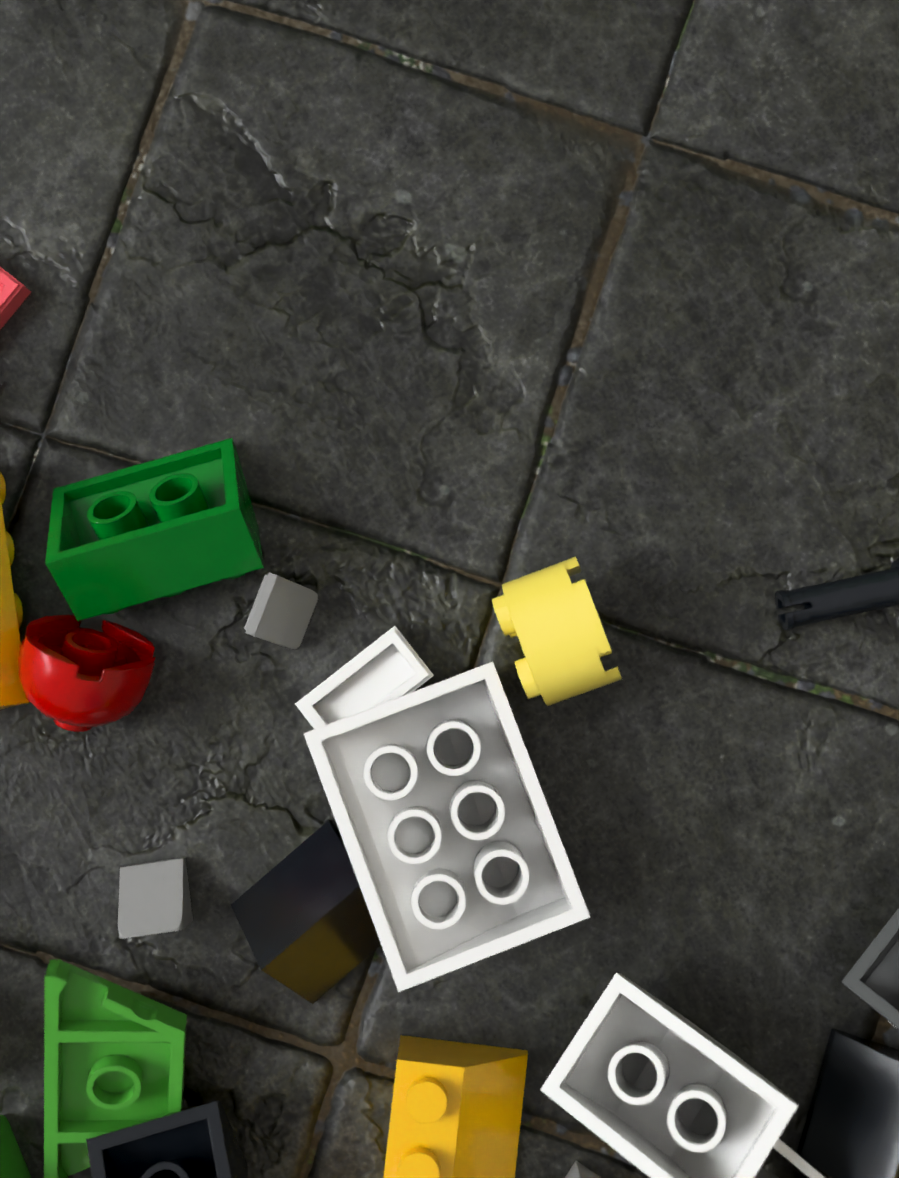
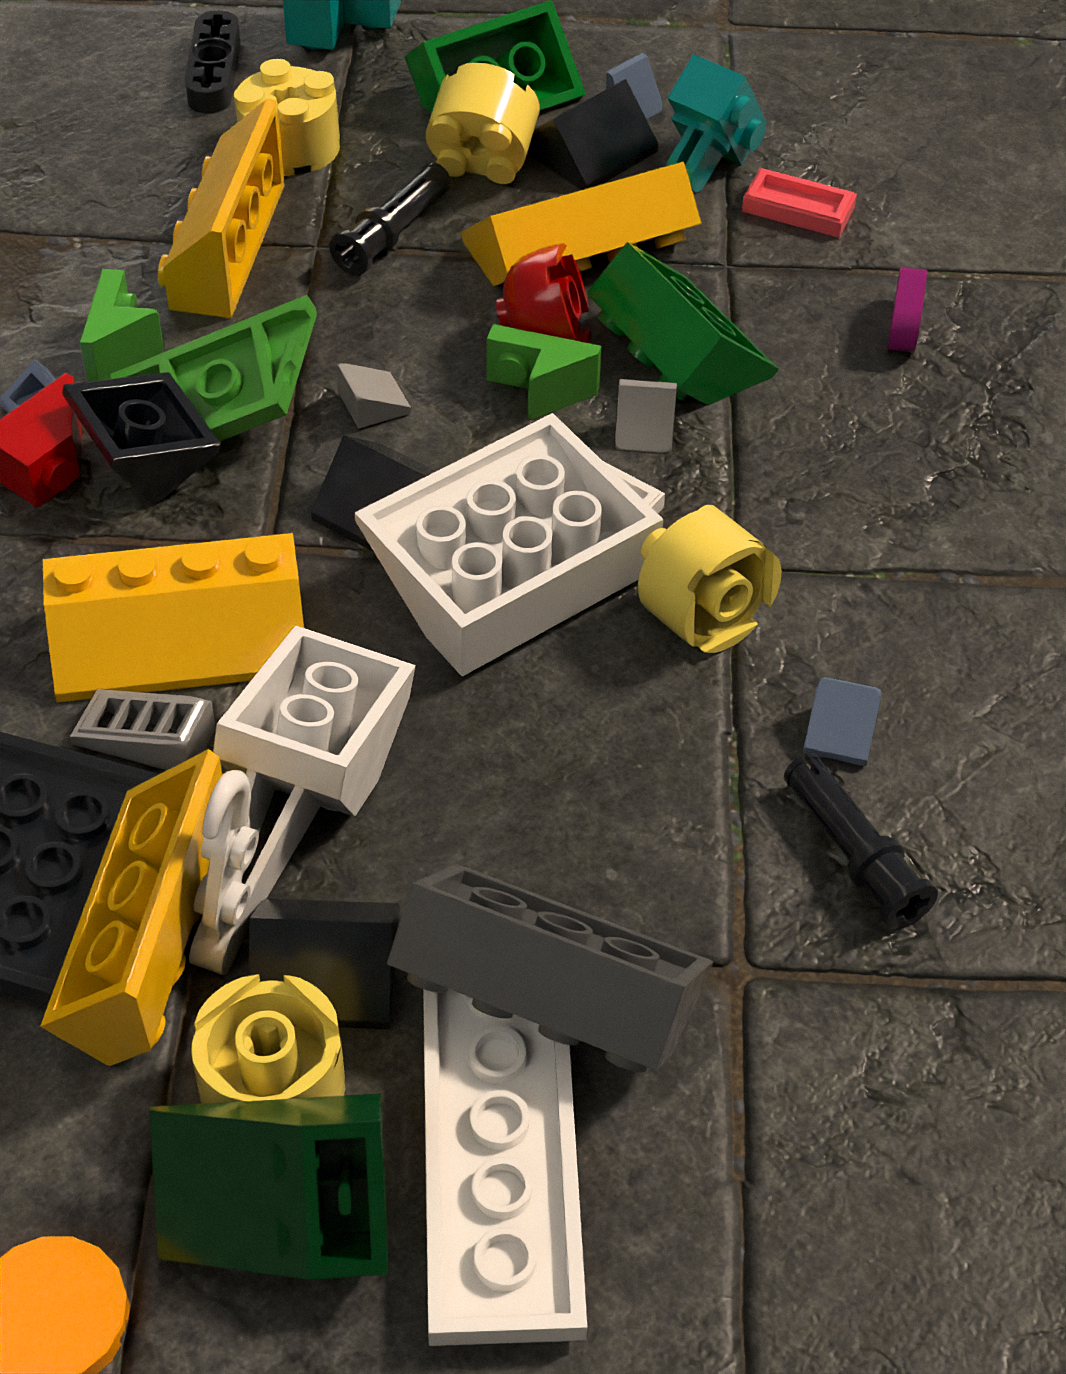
camera: 70 degrees right, 35 degrees down
(185, 687) = (550, 367): none -> bright green slope
(193, 268) = (907, 310): none -> magenta beam
(738, 553) = (842, 721): none -> sand blue slope

